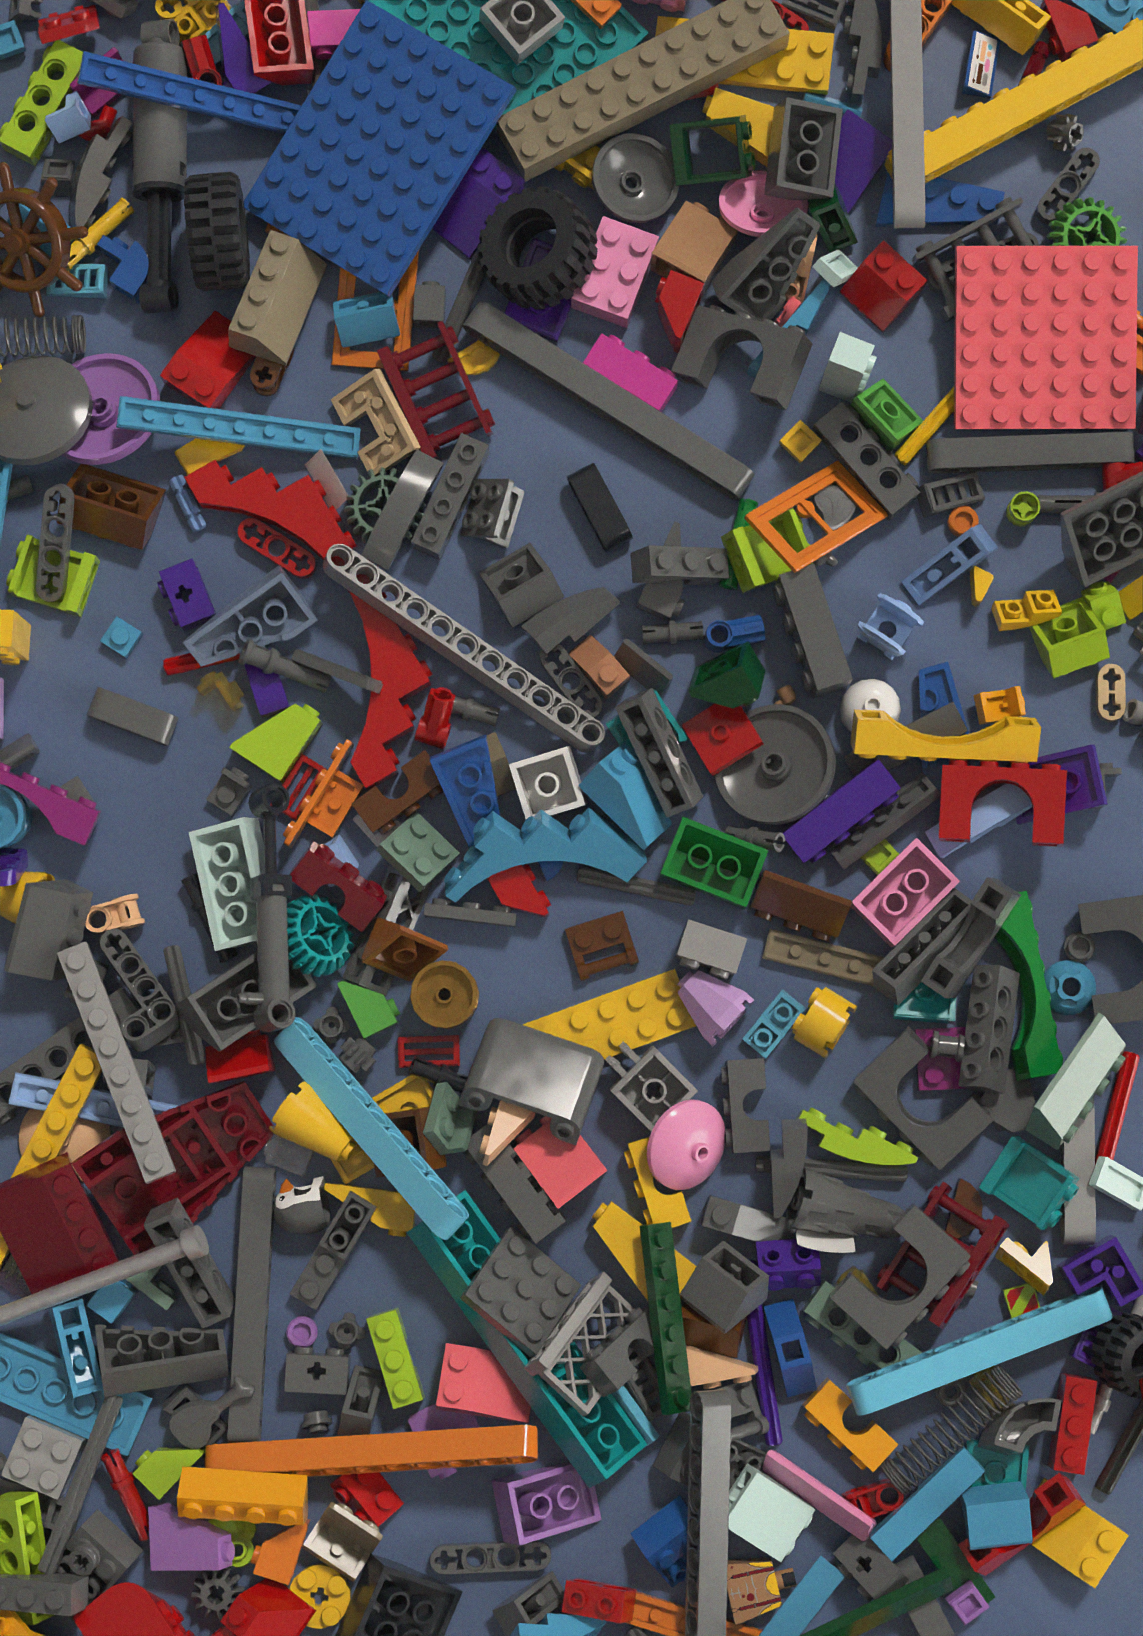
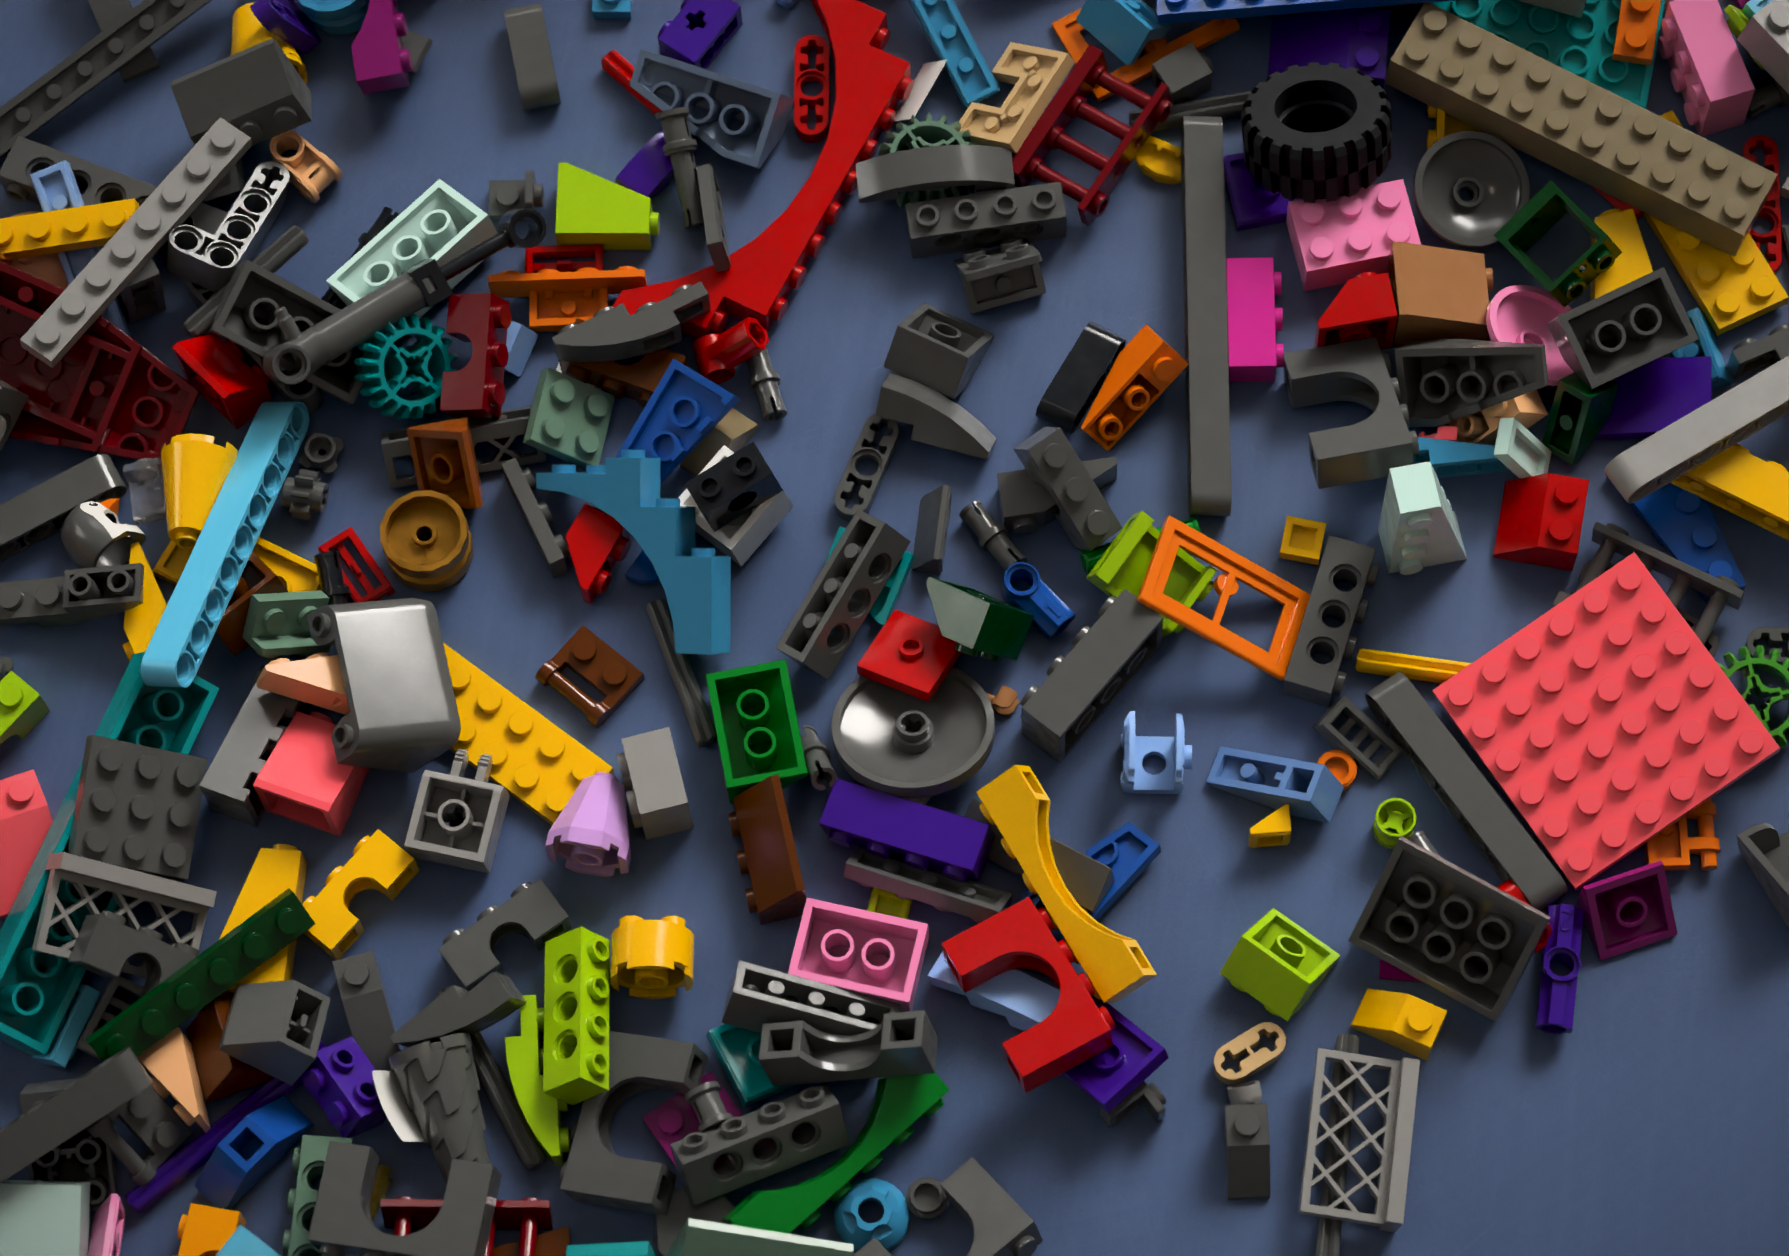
camera: 60 degrees right, 15 degrees down
(230, 691) = (623, 129): clear yellow bracket -> none
(369, 1009) = (361, 477): bright green slope -> none
(386, 784) = (619, 336): none -> dark grey slope
(457, 634) = (819, 344): light grey beam -> none
(549, 777) = (733, 486): none -> black brick
(599, 666) = (900, 487): nougat slope -> none
(626, 795) = (768, 588): dark azure slope -> none
(627, 474) = (1132, 386): none -> orange slope
(686, 1144) = (420, 869): bright pink dish -> none
(773, 1023) = (603, 907): medium azure slope -> none
(820, 957) = (724, 908): dark tan tile -> none
(820, 1092) = (576, 1016): none -> lime brick
(836, 510) = (1251, 618): dark grey piece -> none
(869, 695) = (1067, 793): white cylinder -> none
(886, 414) = (1399, 609): bright green slope -> none
(997, 704) = (1149, 931): light orange bracket -> none
(1032, 610) = (1269, 892): yellow slope -> none
(1105, 604) = (1344, 982): lime bracket -> none

